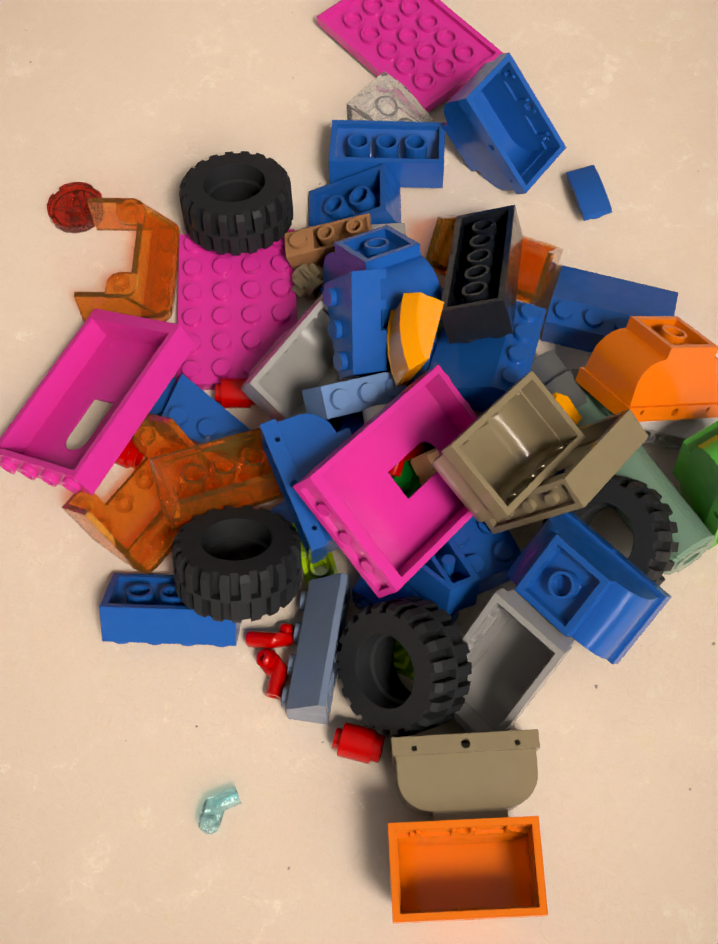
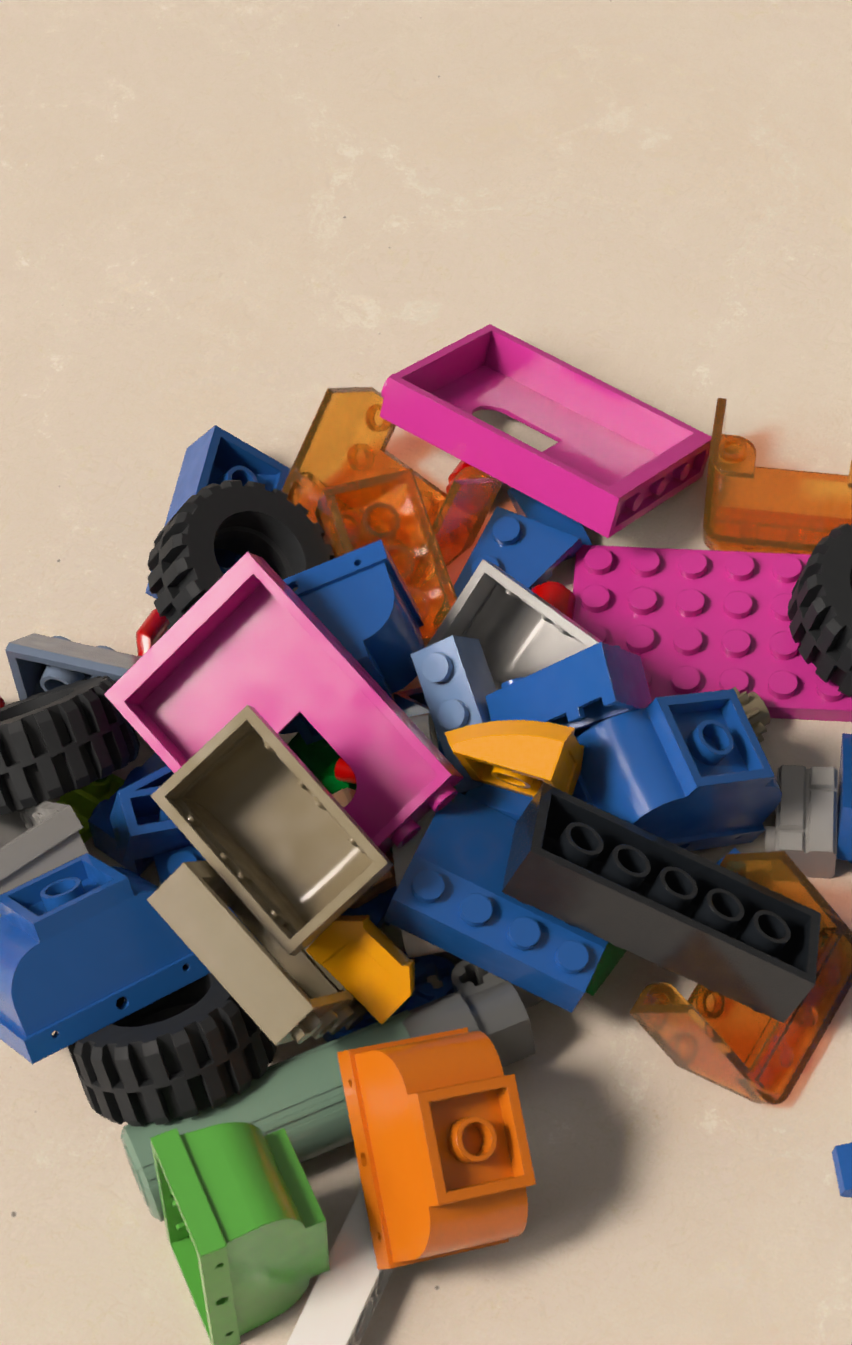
camera: 100 degrees right, 10 degrees down
(275, 670) = (120, 638): red arm -> none
(315, 242) = (798, 727): medium nougat slope -> none
(593, 305) = (629, 1161): blue slope -> none

